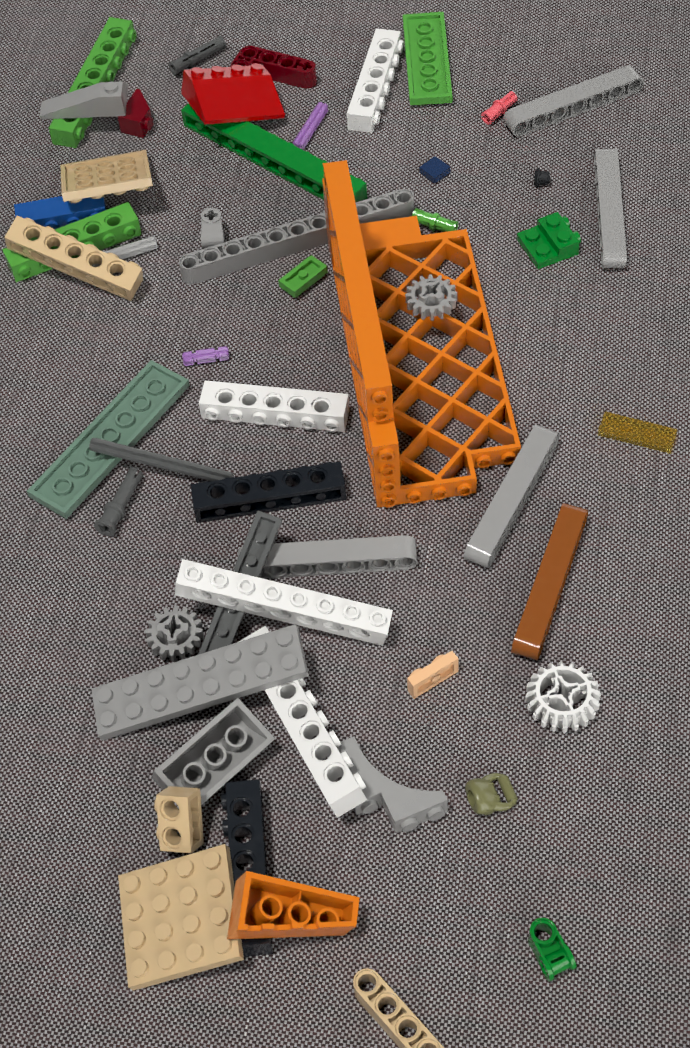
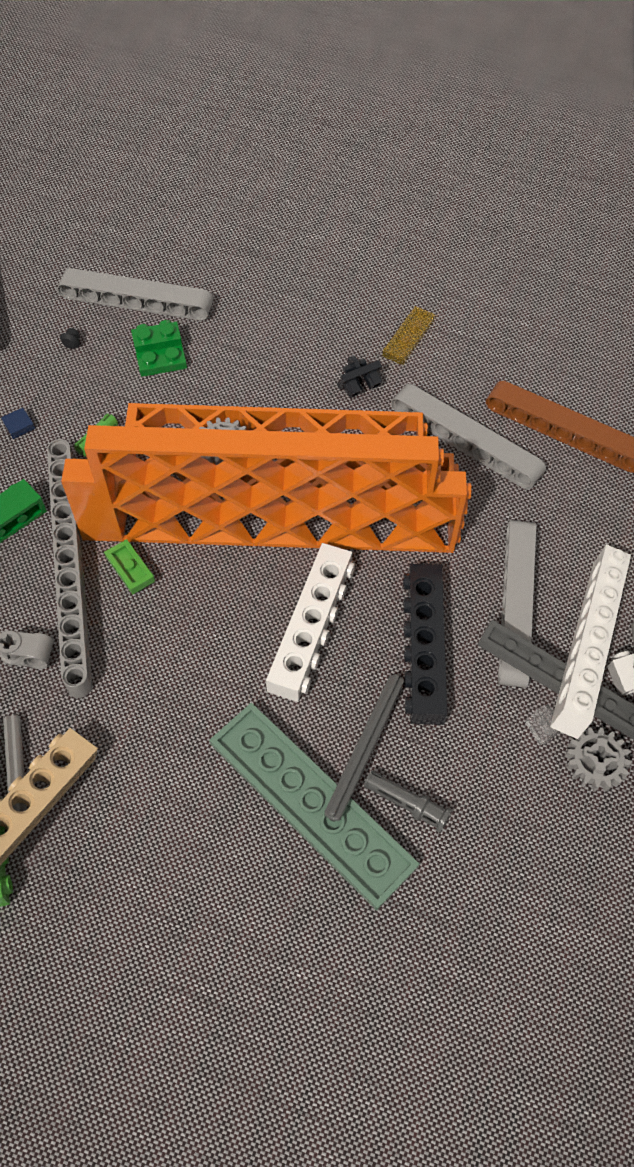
camera: 85 degrees left, 5 degrees up
(205, 356) = (213, 683): medium lavender axle -> none
(567, 403) = (358, 371): none -> black hips

